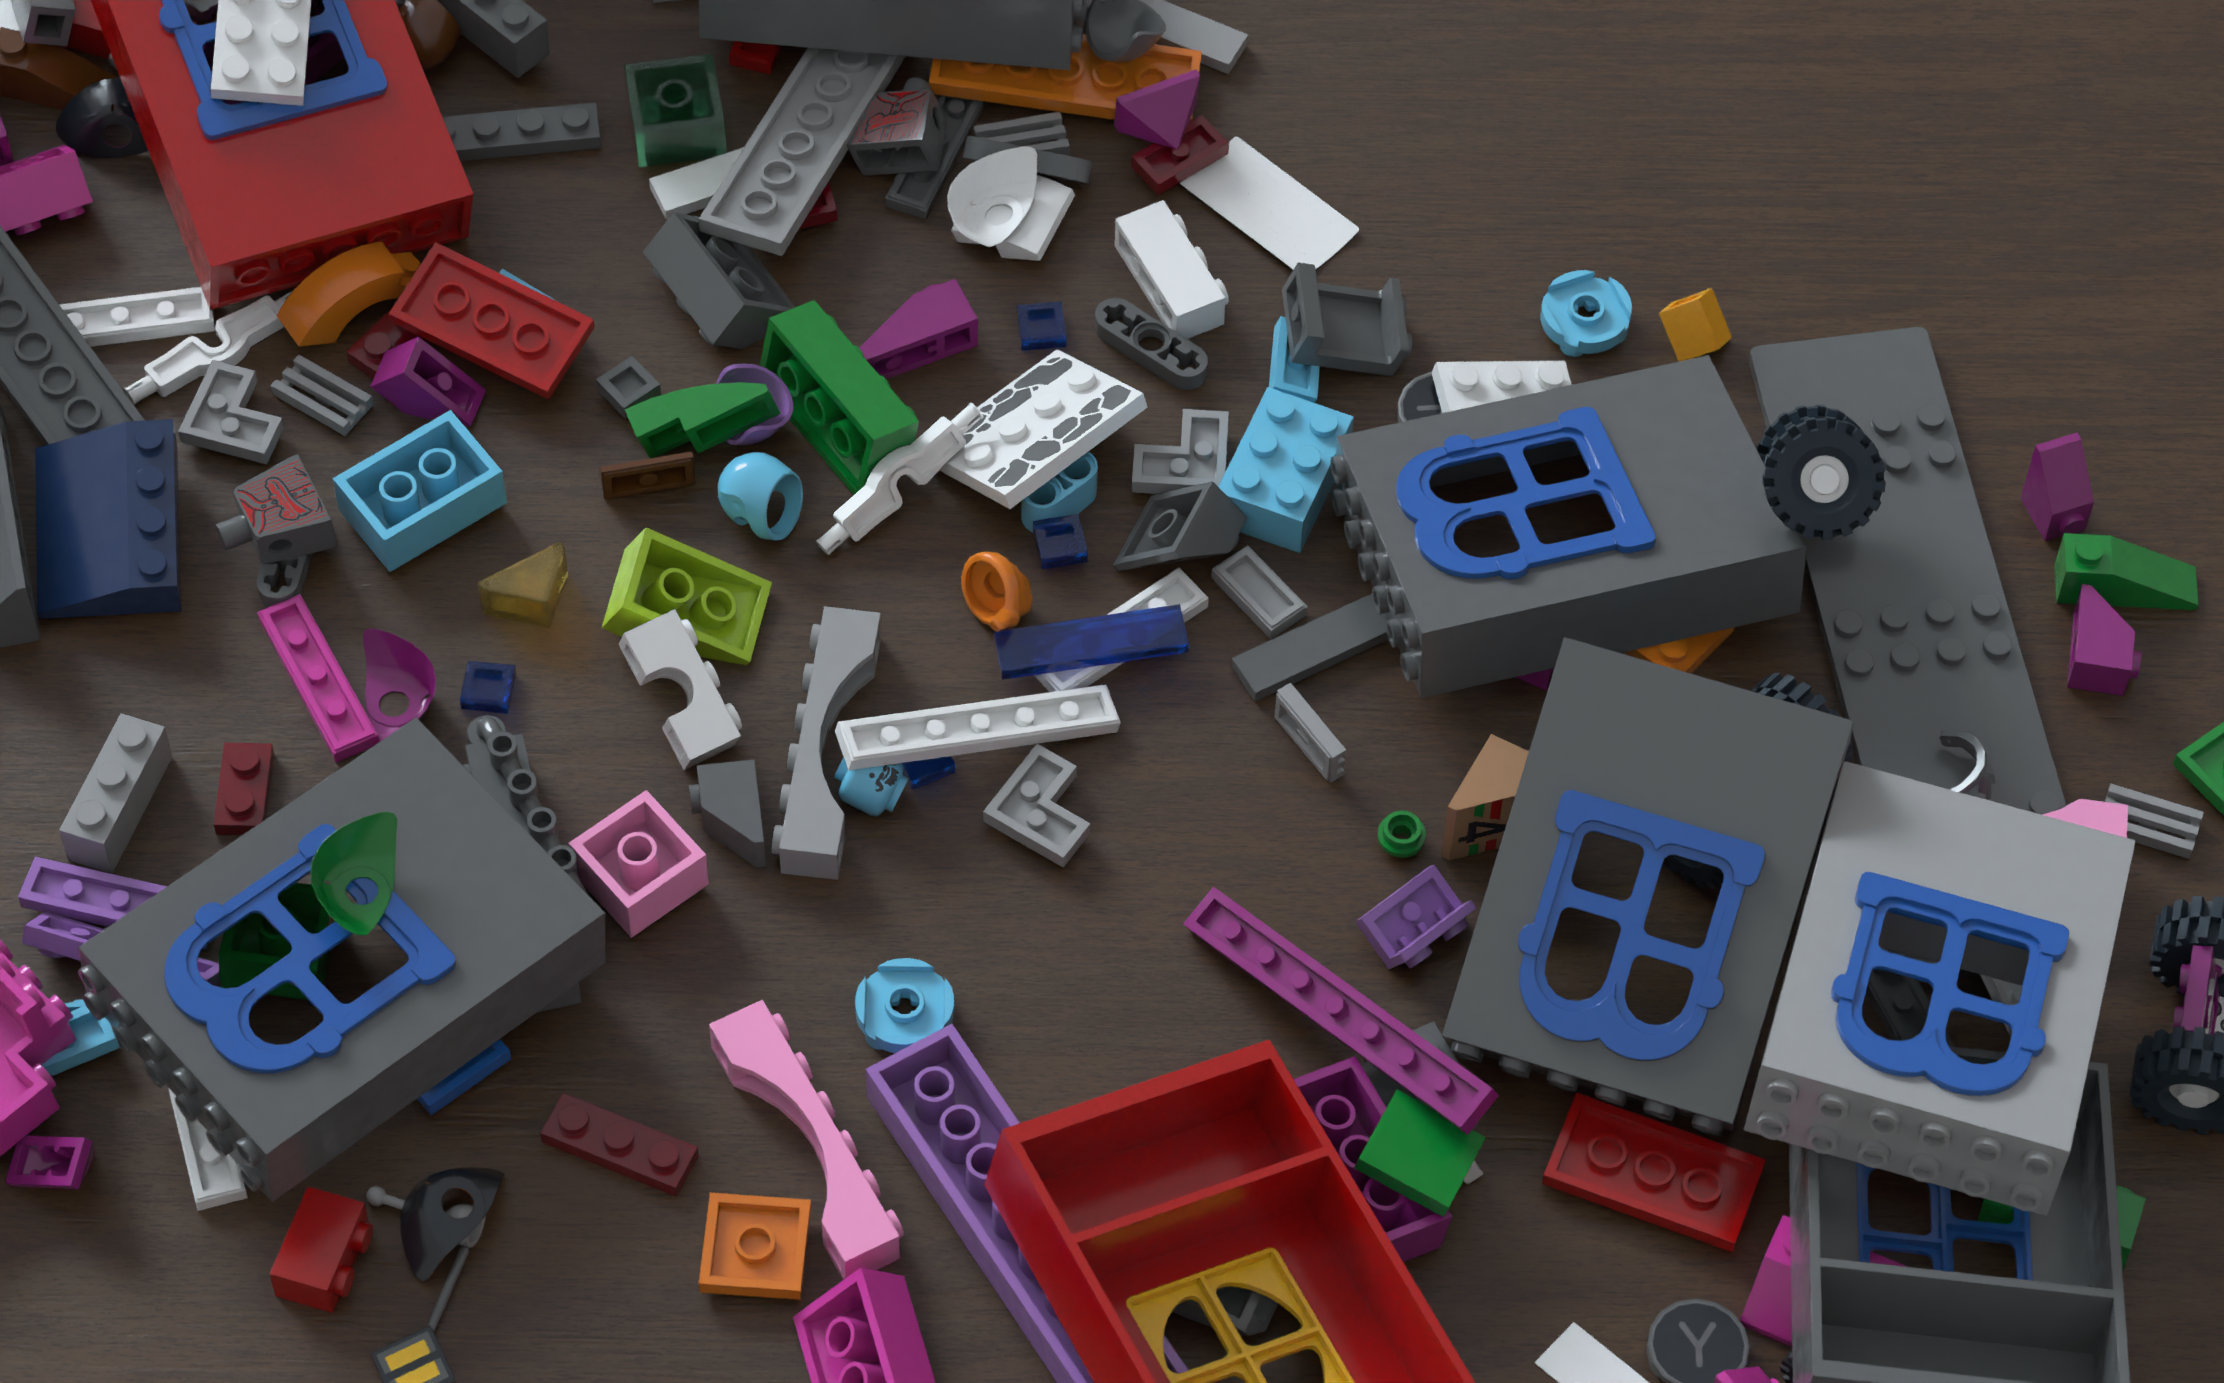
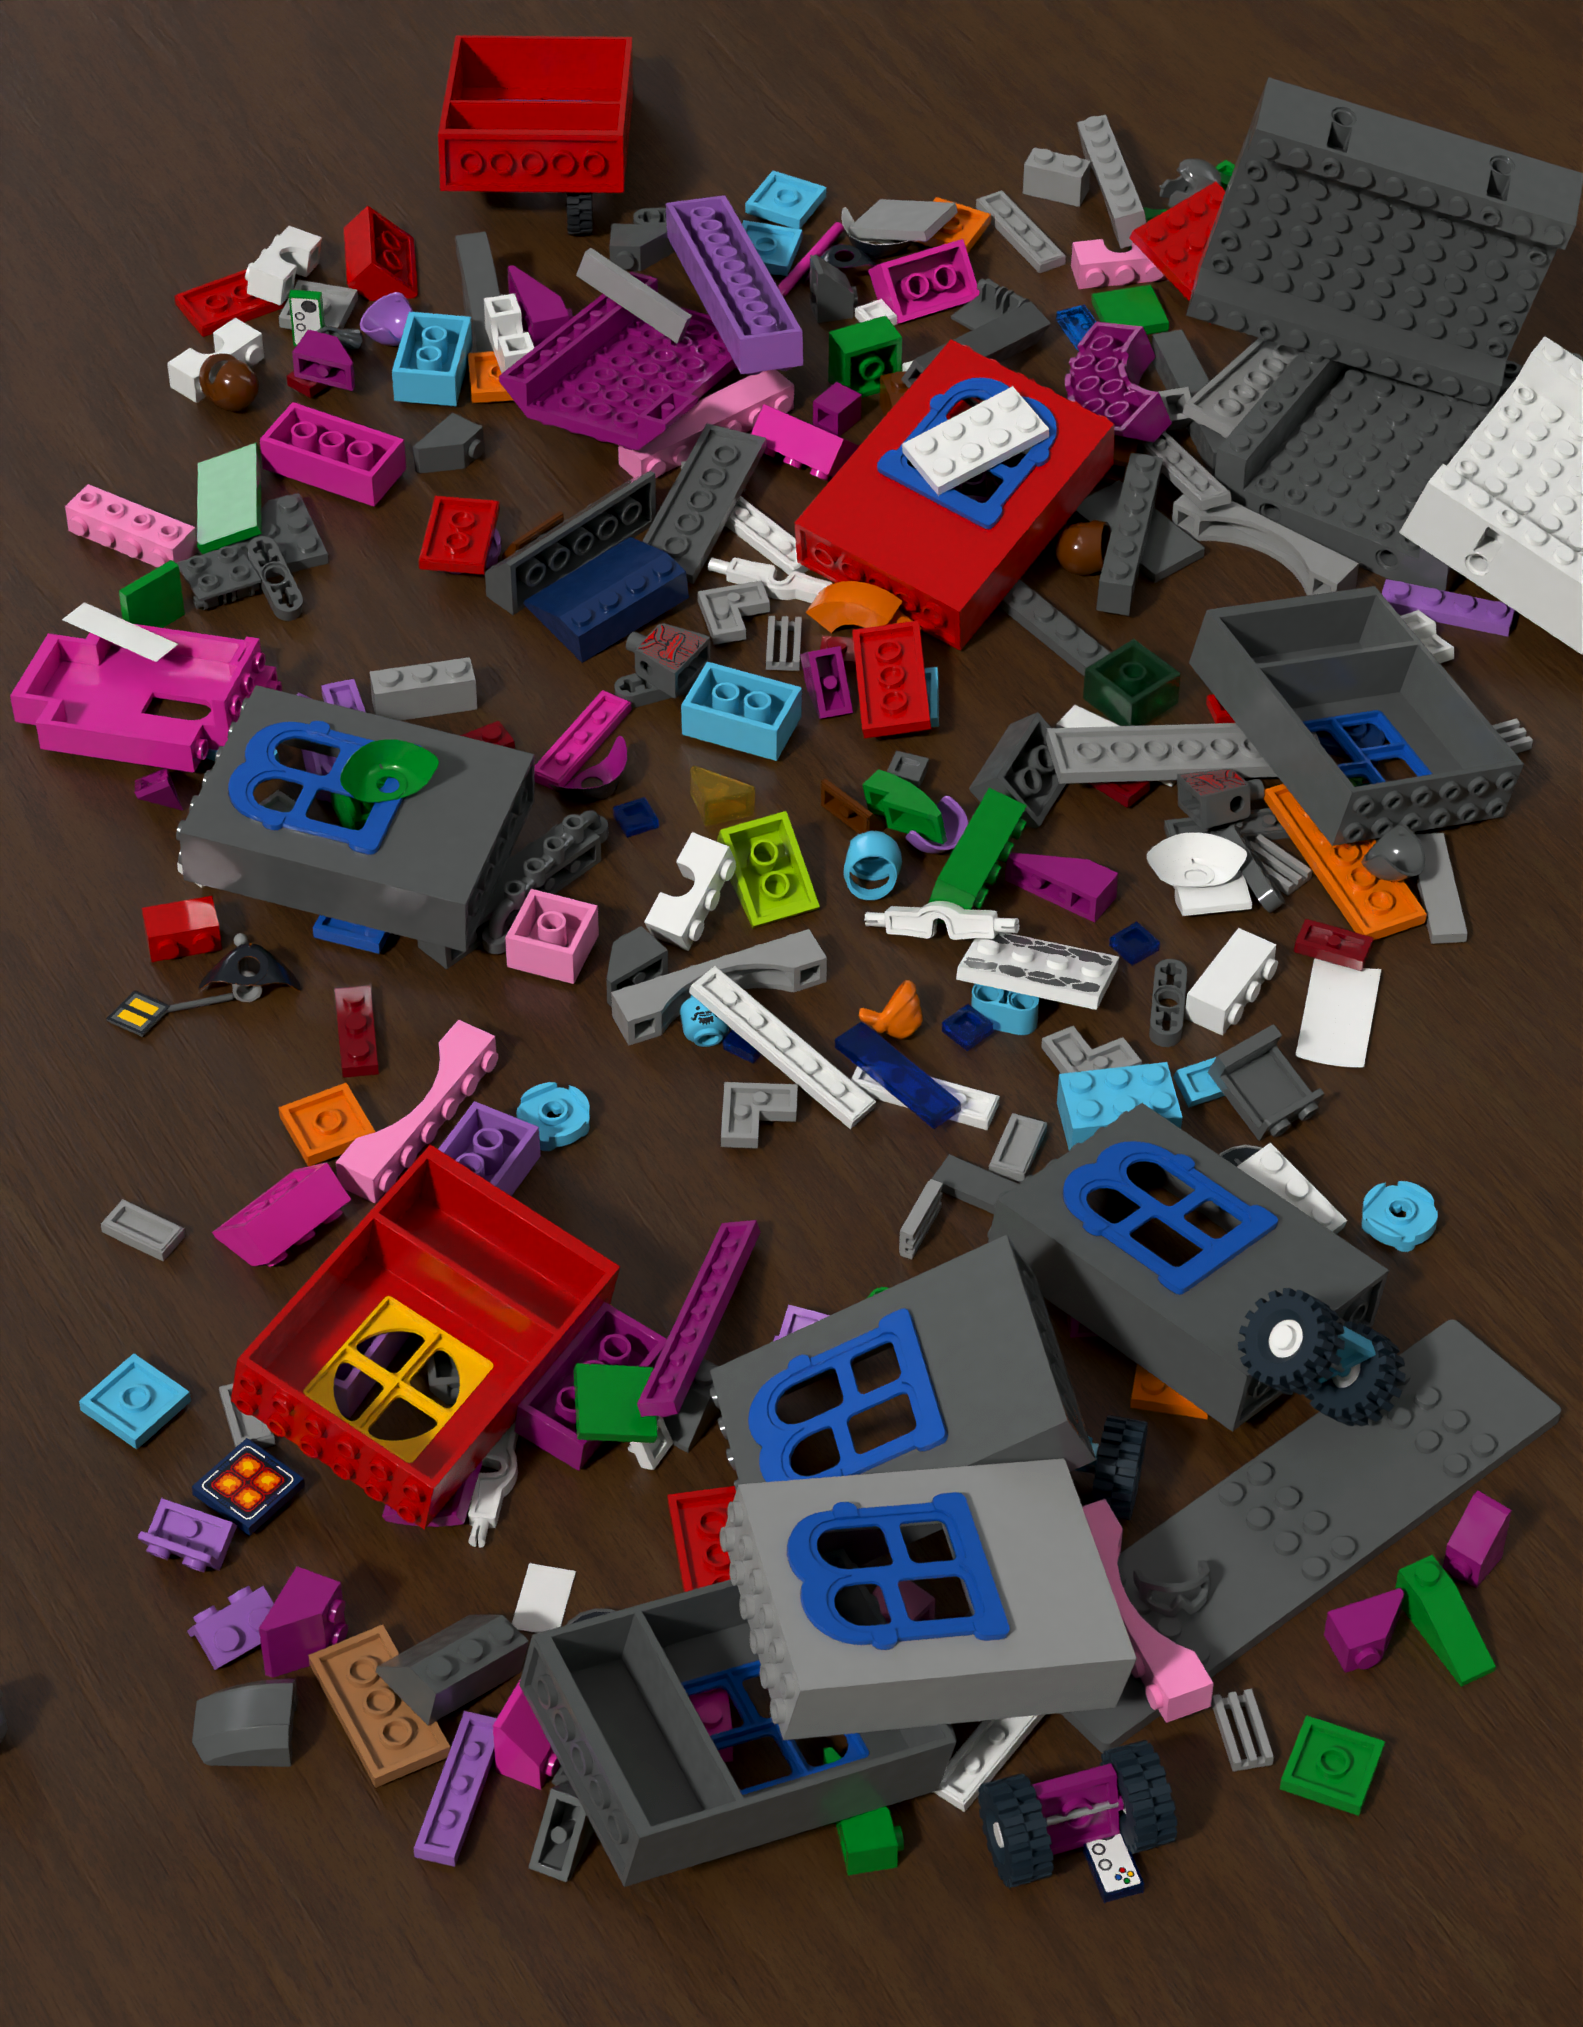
camera: 60 degrees right, 10 degrees down
(1160, 110) = (1349, 909): magenta slope -> none
(1182, 528) = (1027, 1084): dark grey slope -> none
(1695, 325) = (1442, 1277): light orange panel -> none

